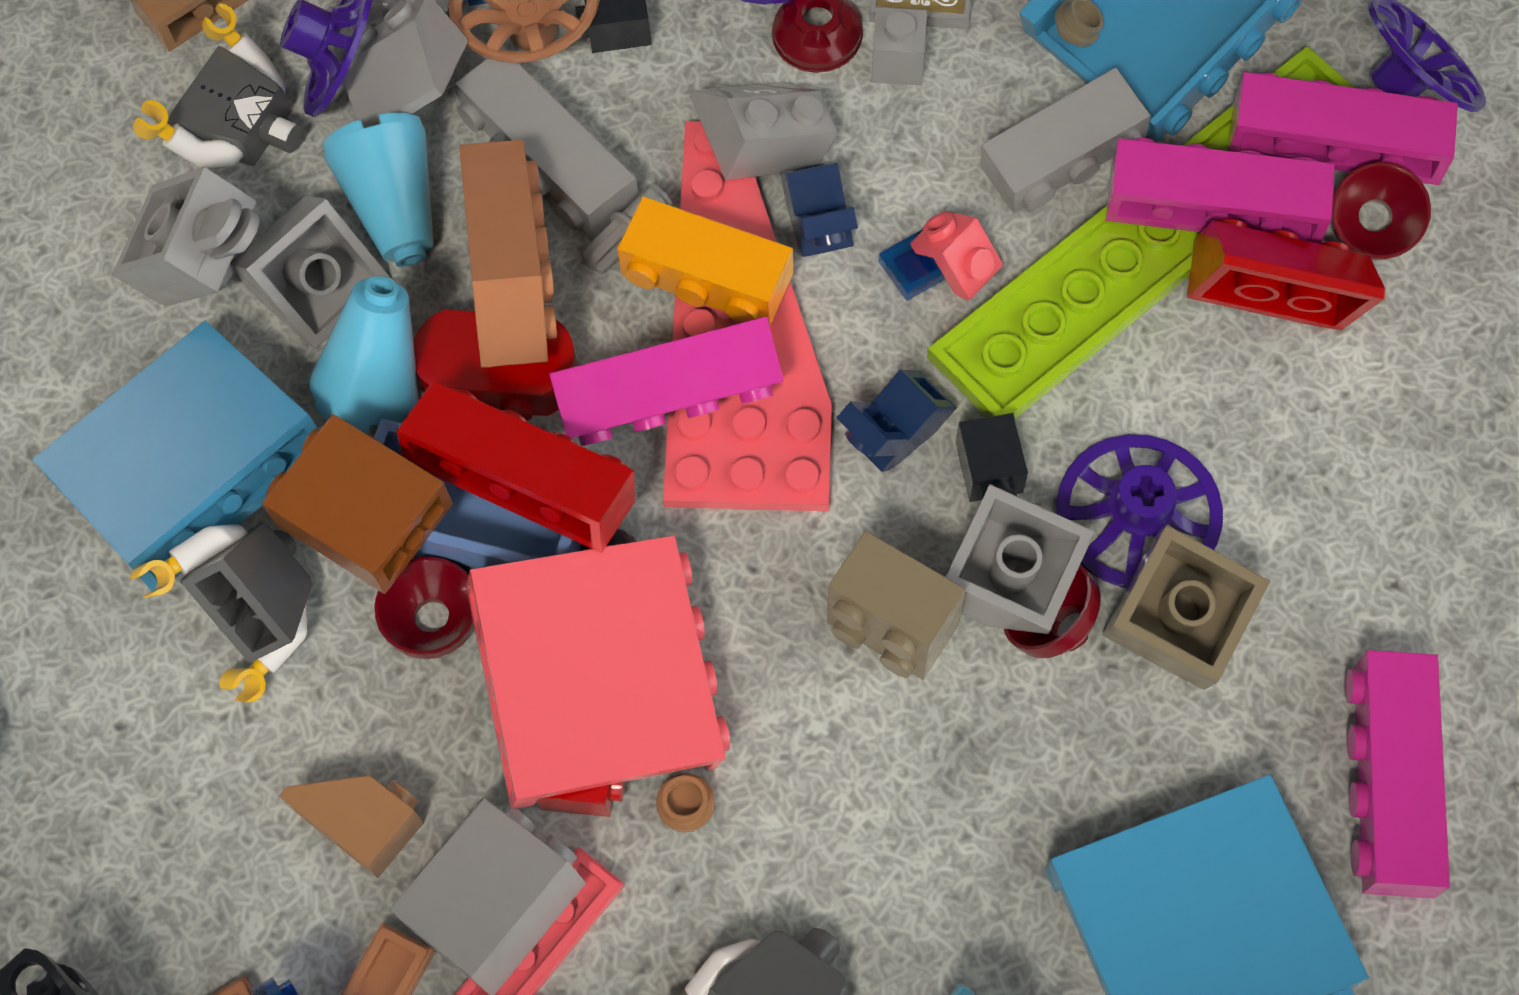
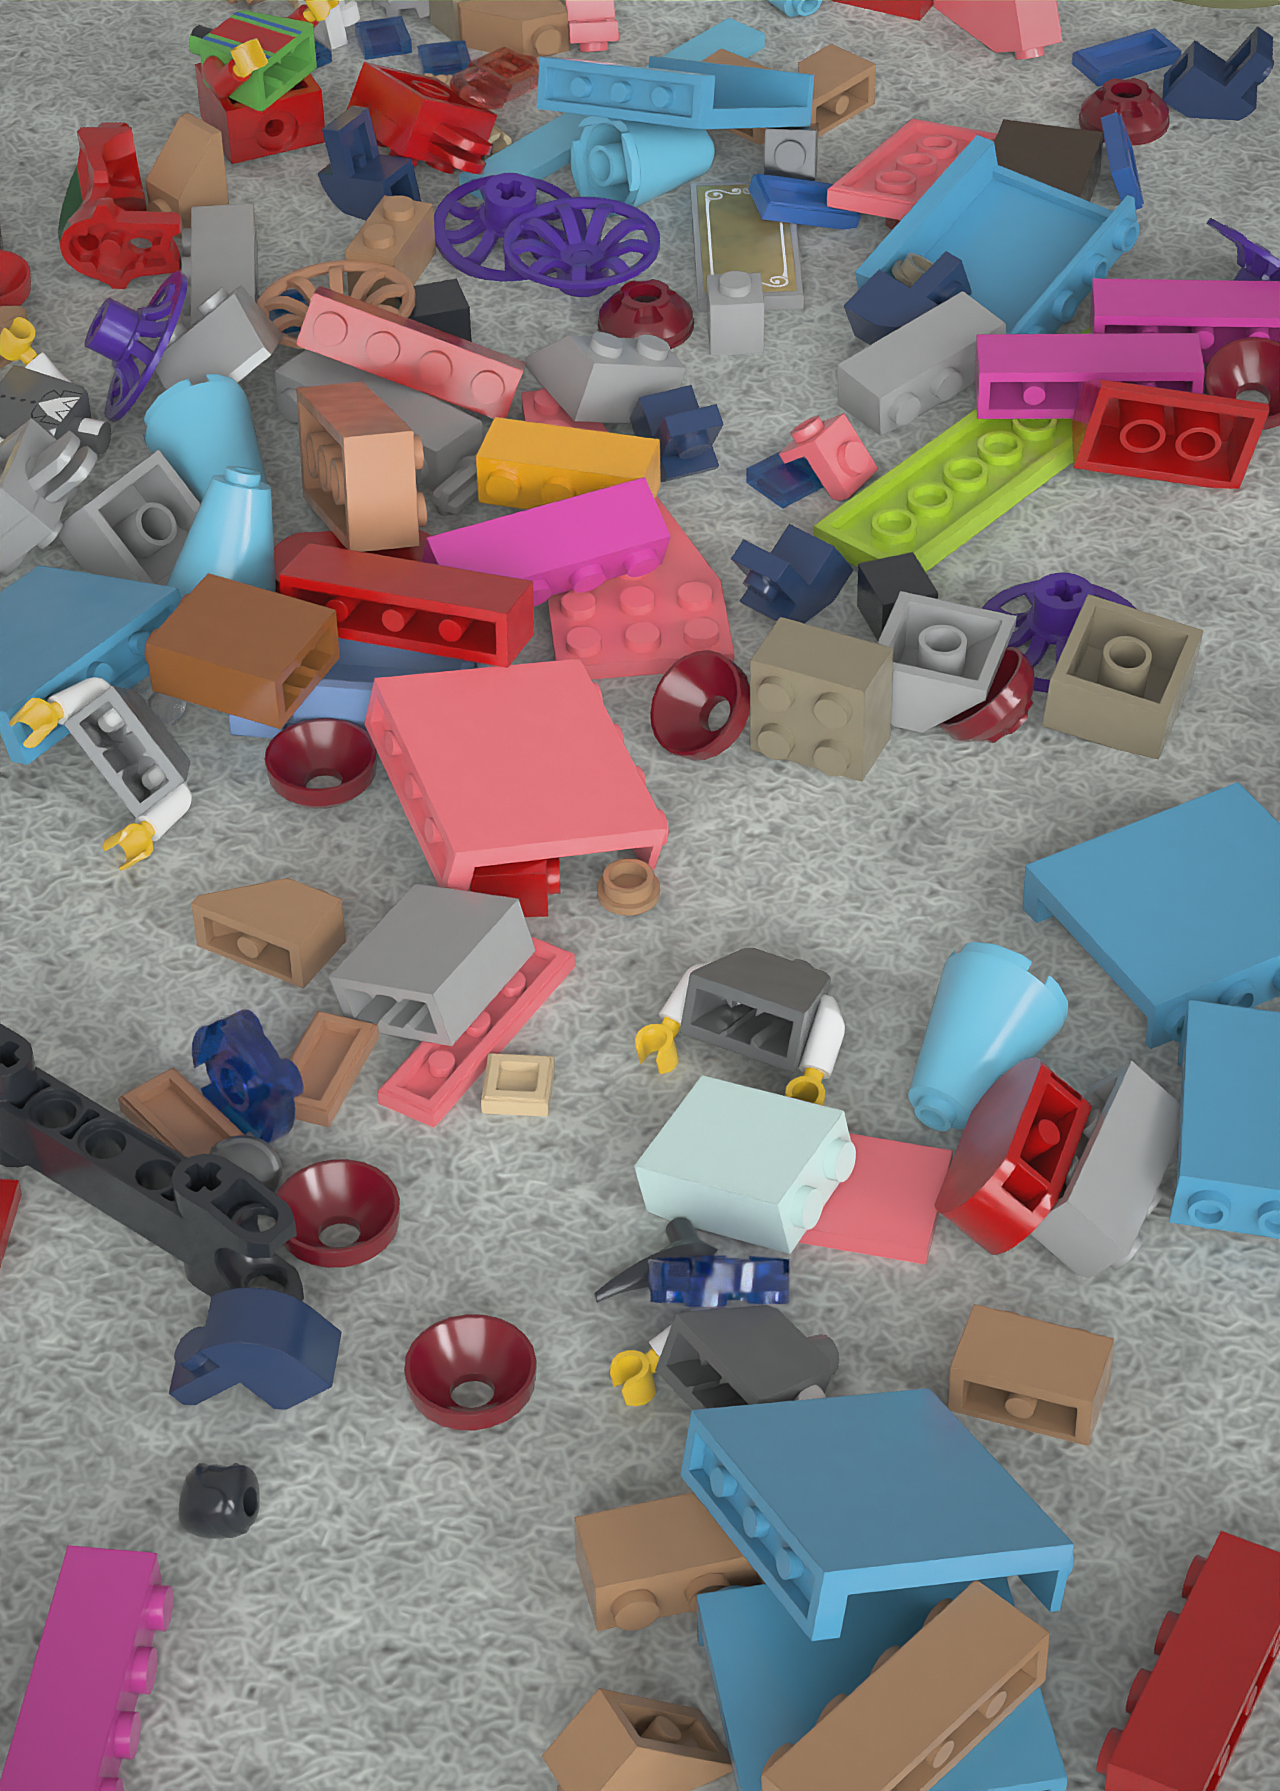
camera: 10 degrees left, 25 degrees down
(580, 87) = (410, 353): none -> brick
(768, 591) = (687, 698): none -> dark red piece
(1053, 73) = (888, 304): none -> dark blue brick

